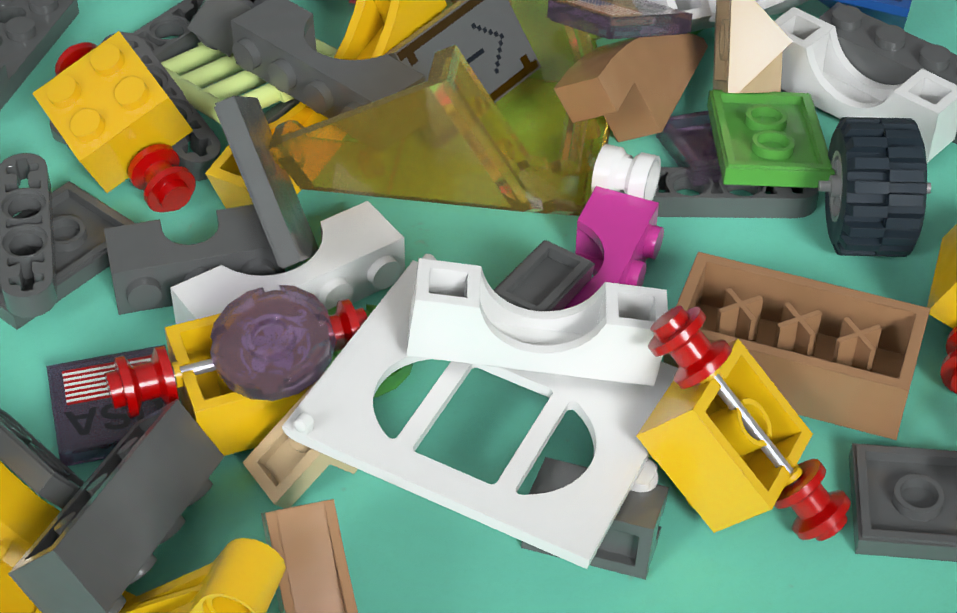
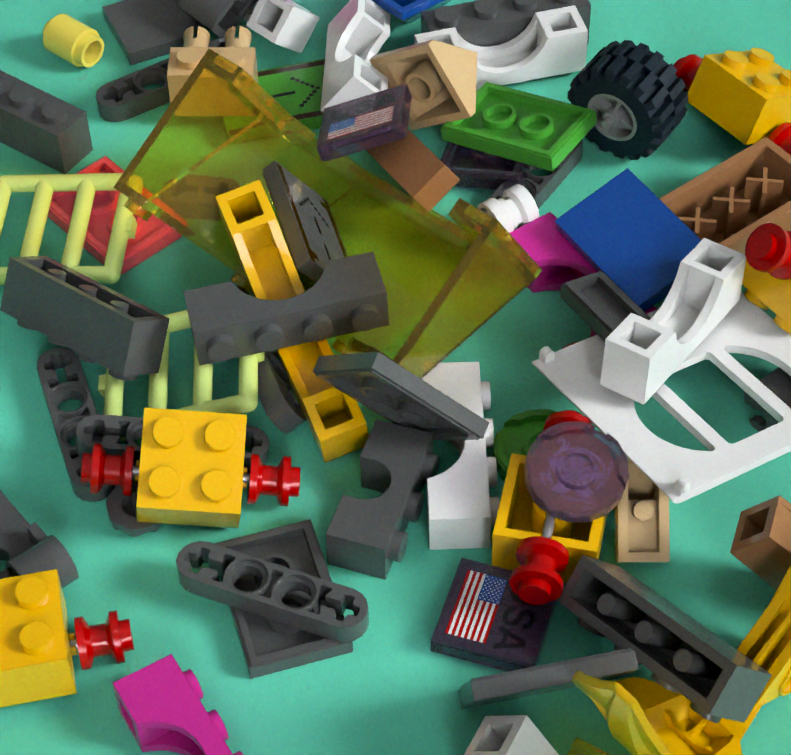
camera: 55 degrees left, 5 degrees up
(665, 249) = (629, 238): none -> blue tile

